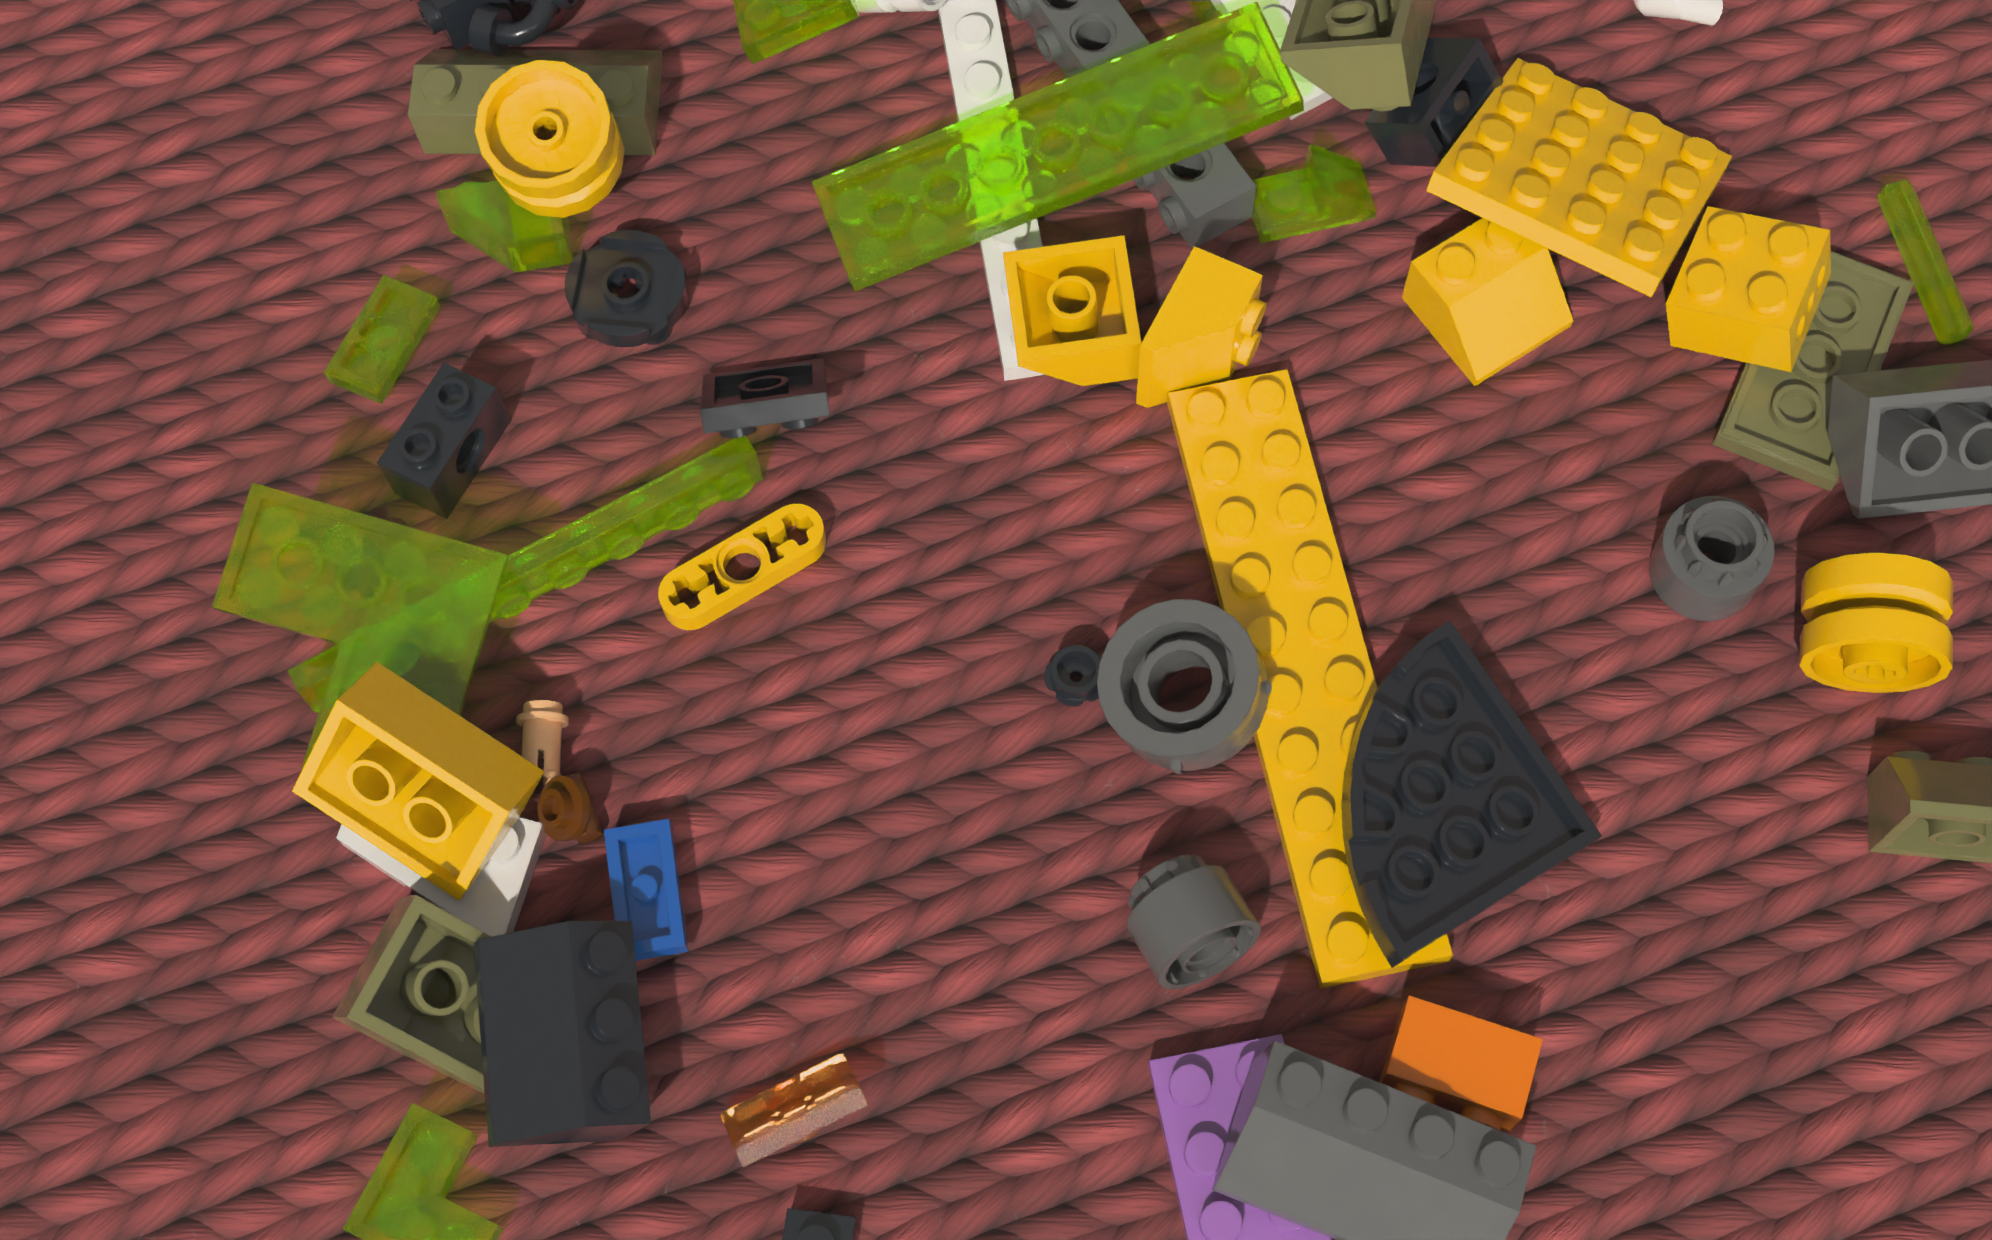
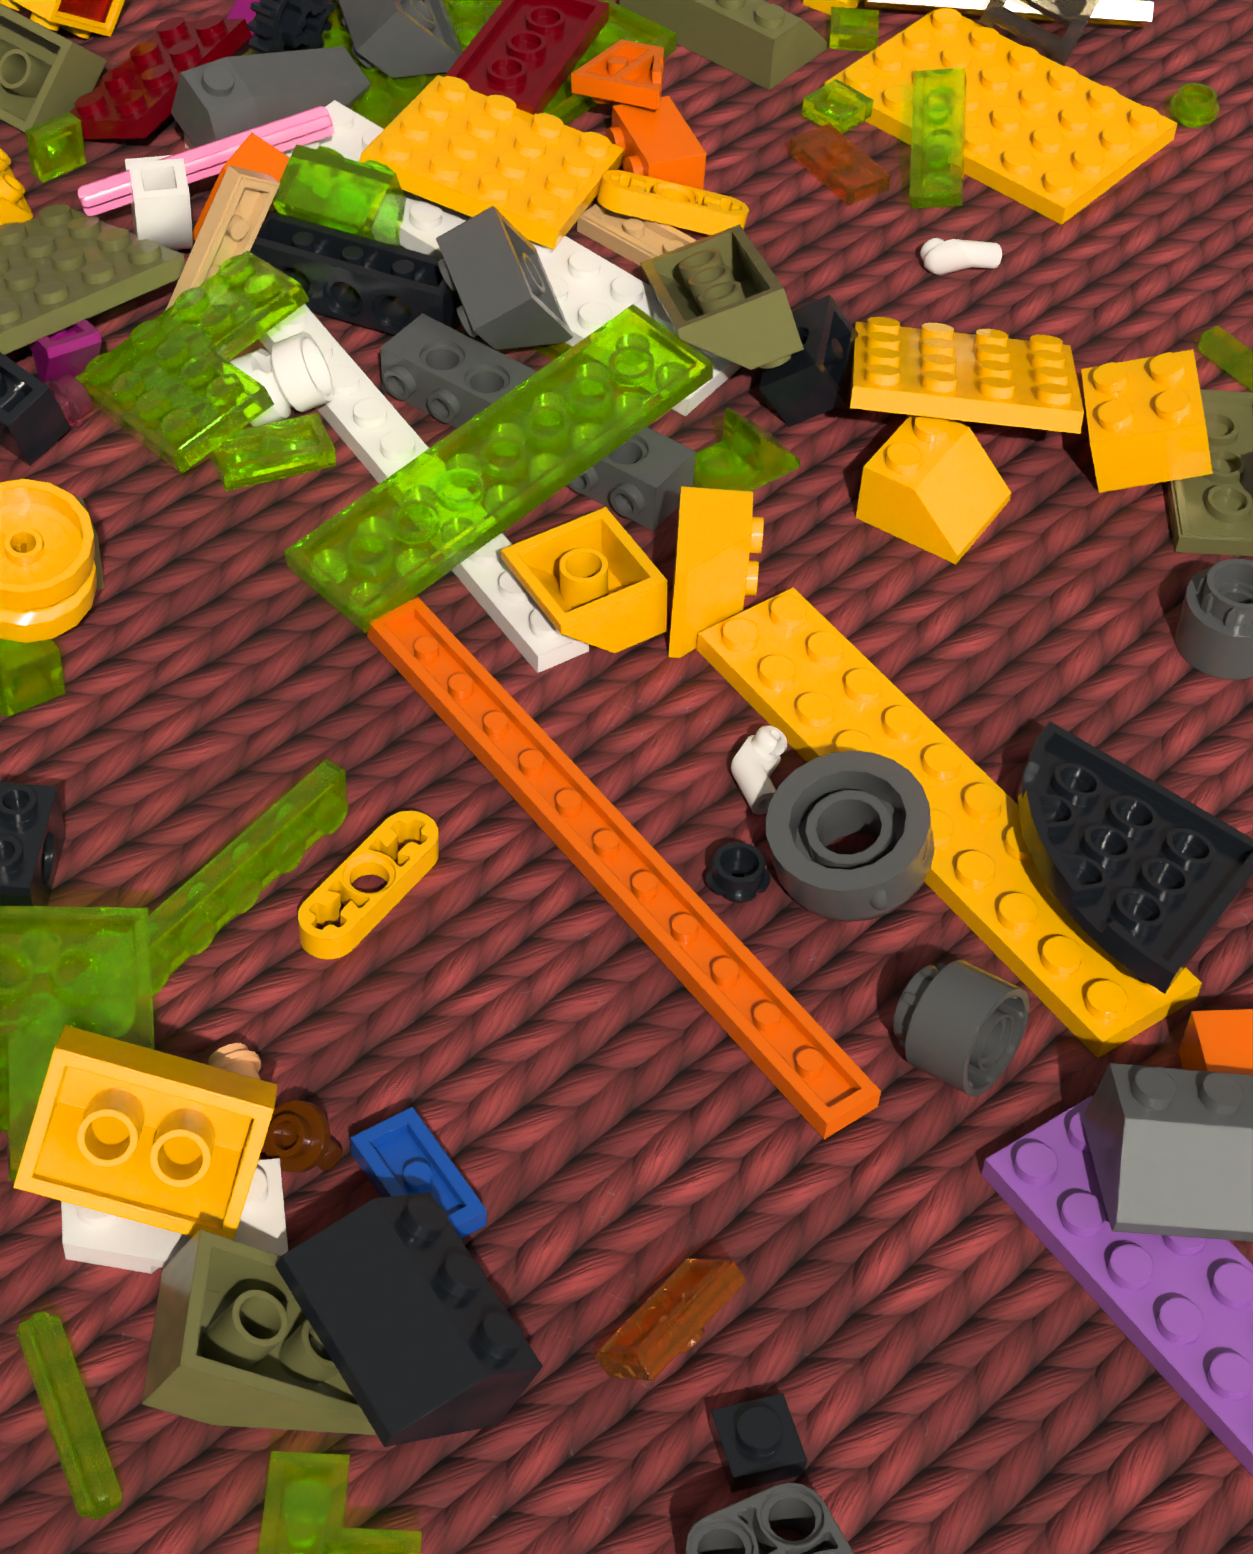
camera: 30 degrees left, 20 degrees down
(280, 998) = (69, 1416): none -> clear neon green axle
(629, 320) = (123, 719): black plate -> none
(764, 396) = (313, 737): black plate -> none
(866, 51) = (273, 452): none -> clear neon green plate
(972, 631) = (628, 872): none -> orange plate
(1151, 560) = (755, 765): none -> white arm

